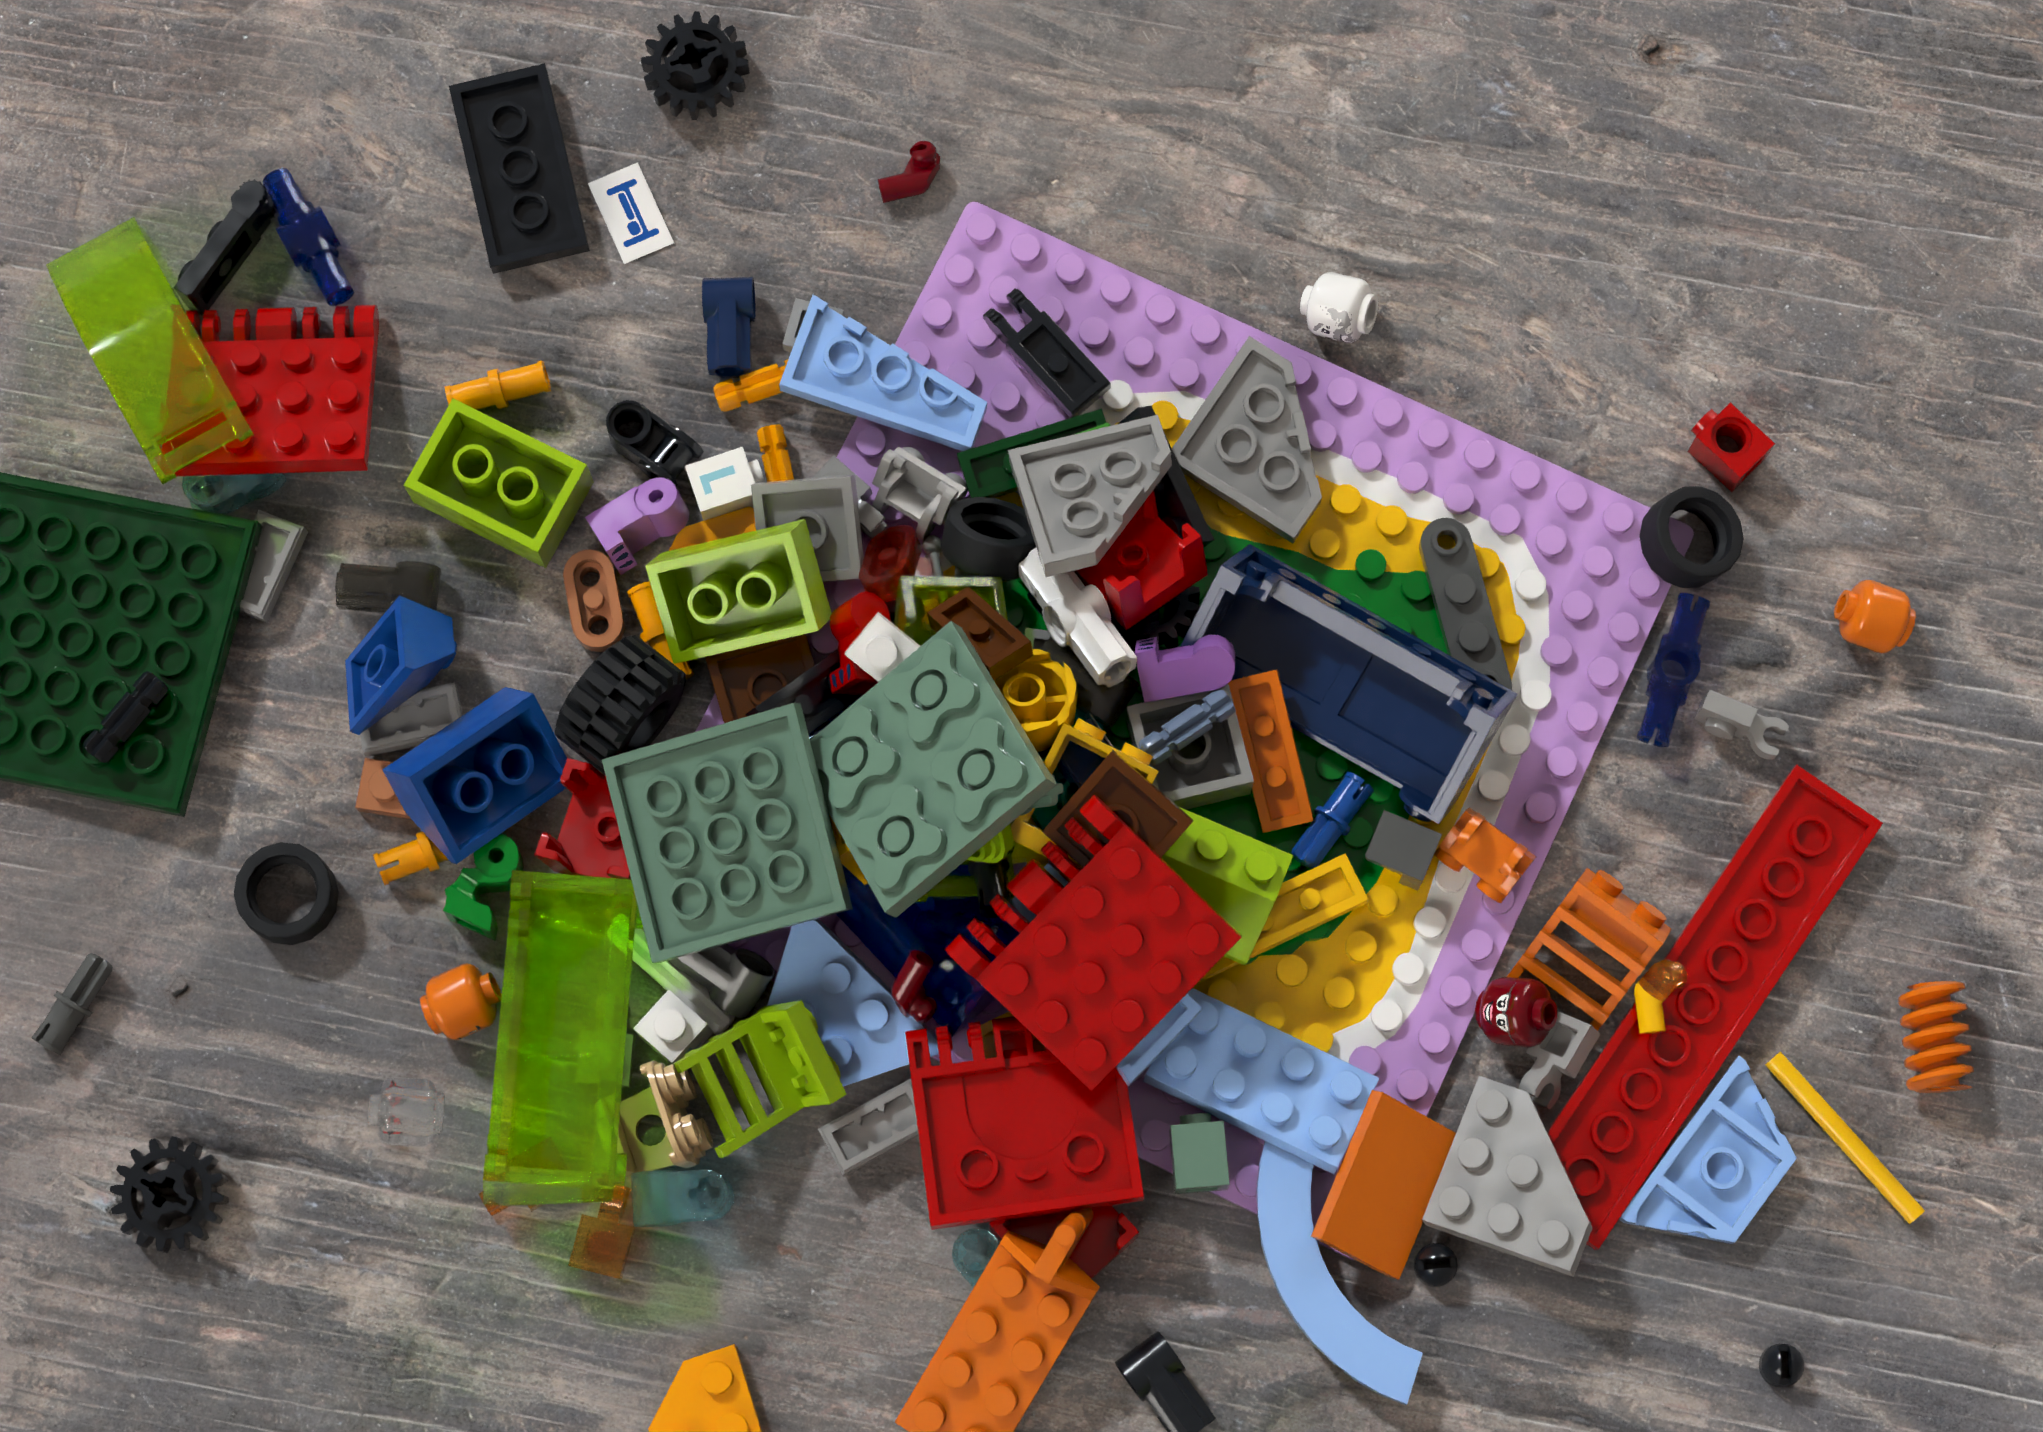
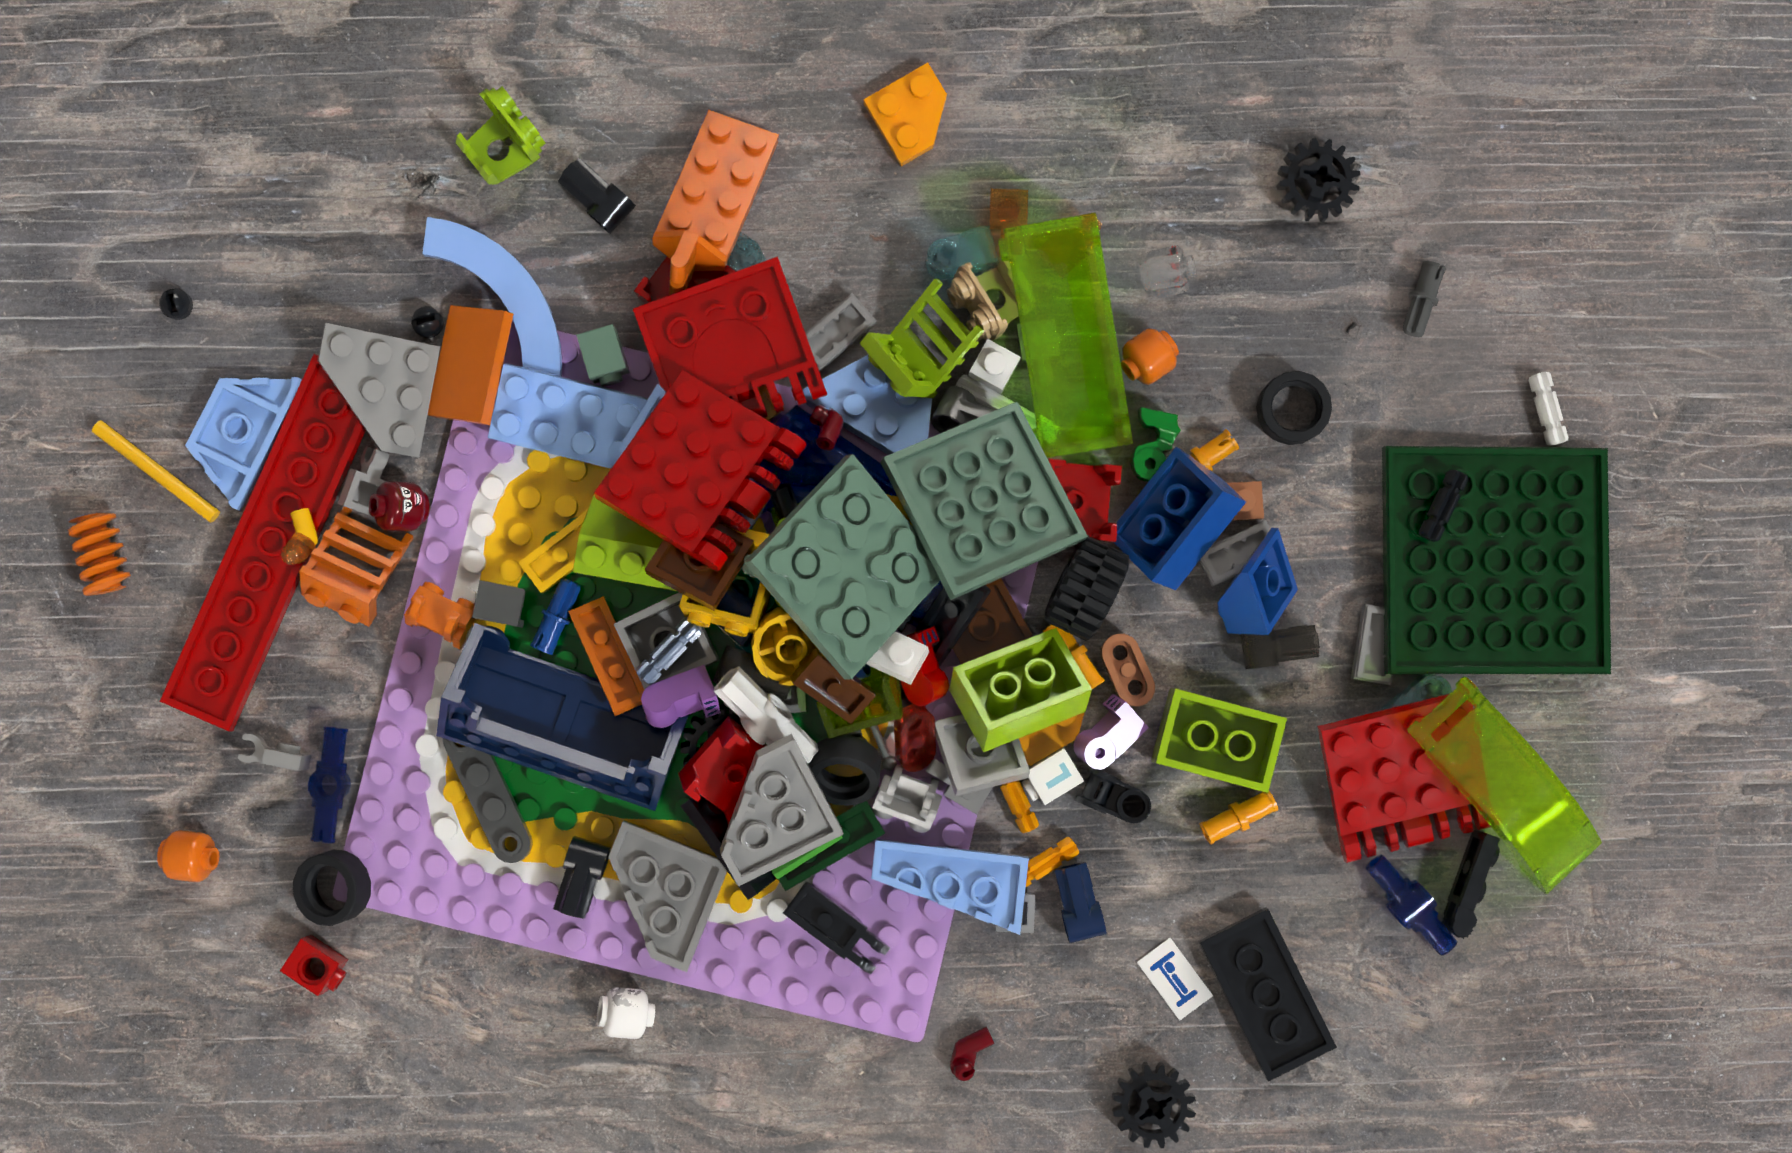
camera: 165 degrees right, 10 degrees up
(1358, 489) = (584, 867): none -> black piece

